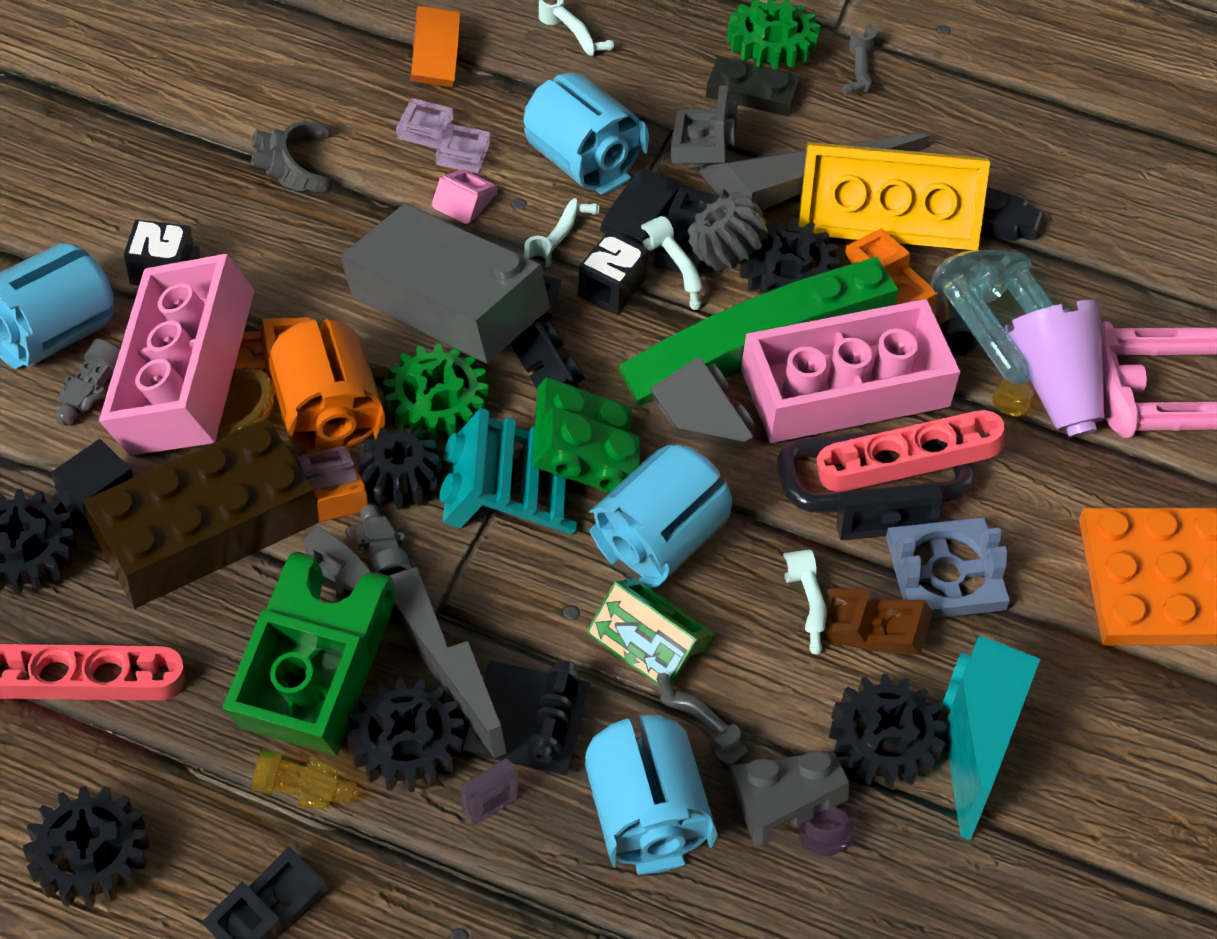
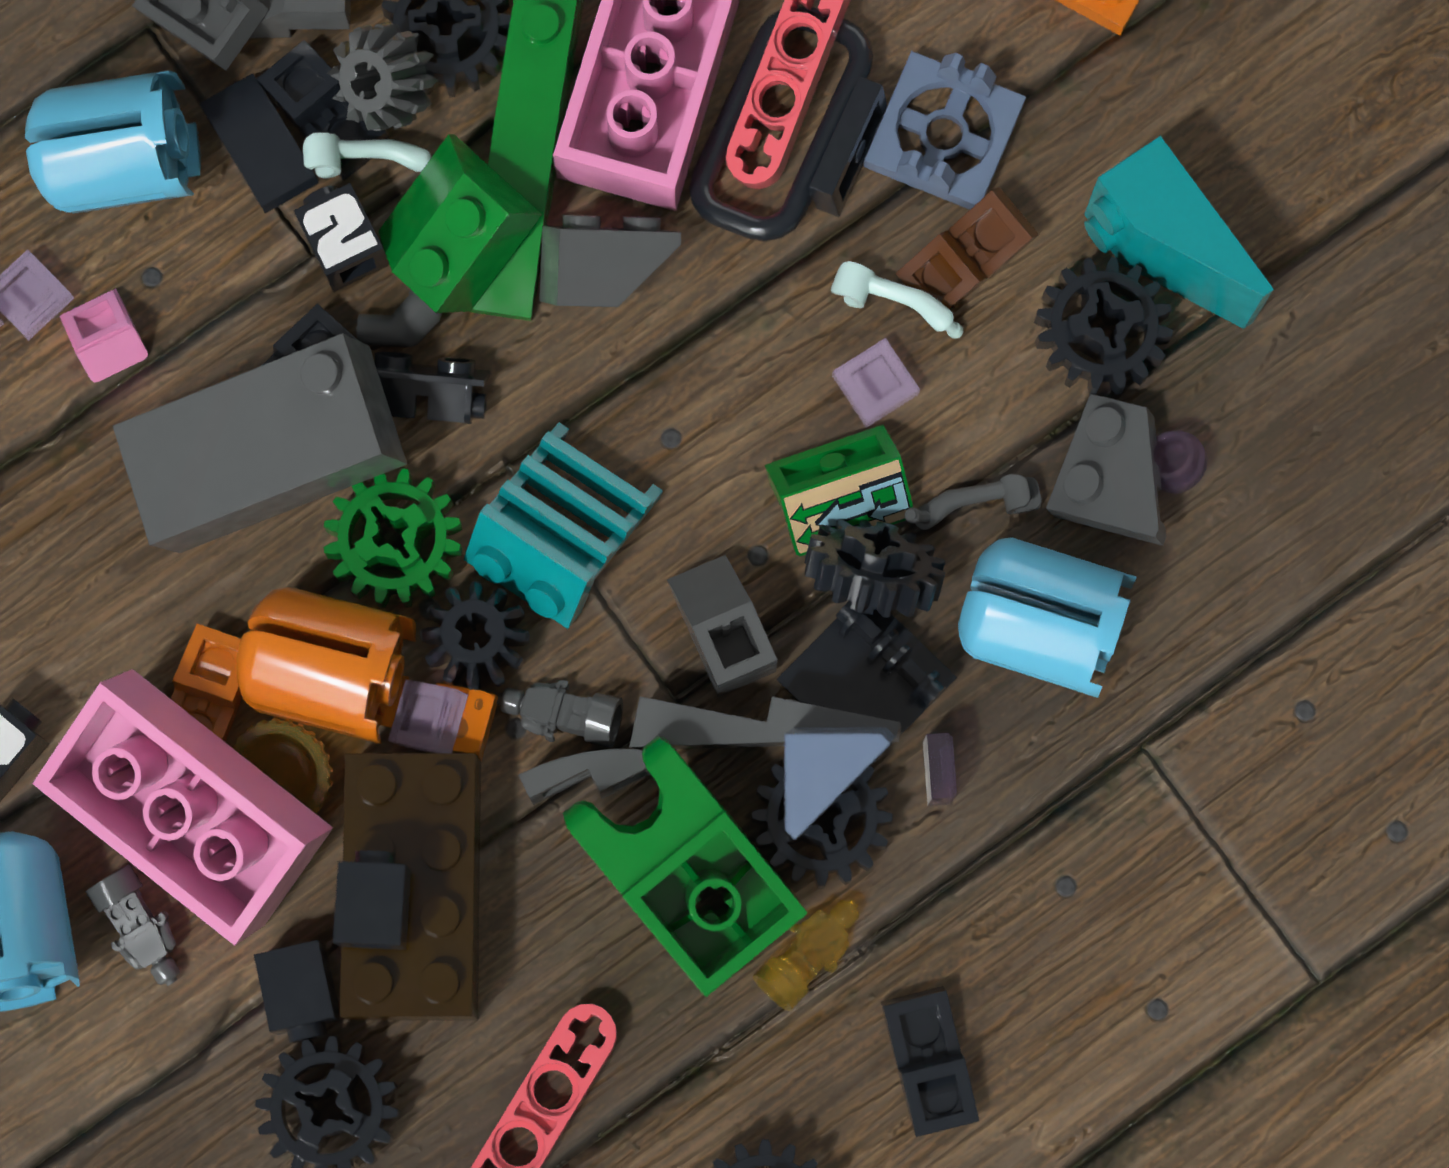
camera: 55 degrees left, 25 degrees up
(167, 464) = (372, 902): none -> black brick
(424, 676) = (822, 765): none -> sand blue slope
(499, 604) = (723, 625): none -> dark grey slope
(544, 246) = (232, 259): light aqua piece -> none
(583, 436) = (564, 412): green plate -> none
(585, 336) = (403, 328): none -> dark grey arm
(605, 664) = (874, 568): none -> black gear
(659, 320) = (455, 229): none -> green slope
(662, 513) = (722, 391): medium azure cylinder -> none
(742, 617) = (875, 382): none -> clear purple tile

